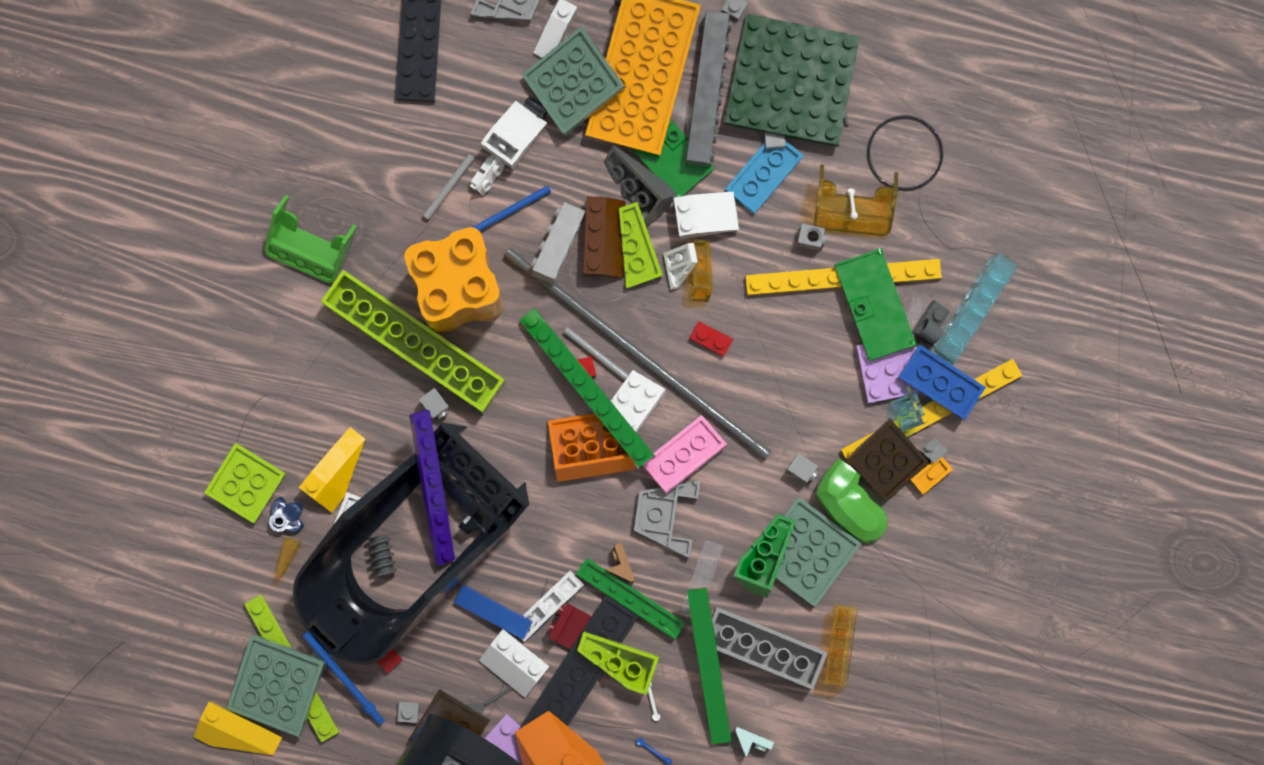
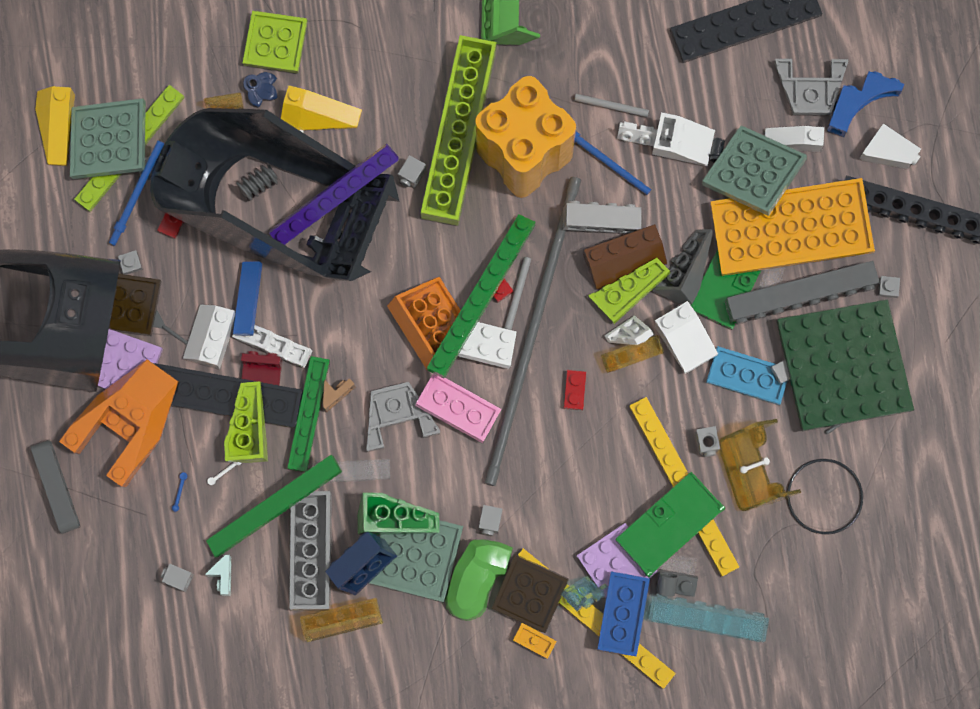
camera: 70 degrees right, 5 degrees down
(797, 605) = (361, 563): none -> dark blue brick
(933, 450) = (558, 633): light grey plate -> none

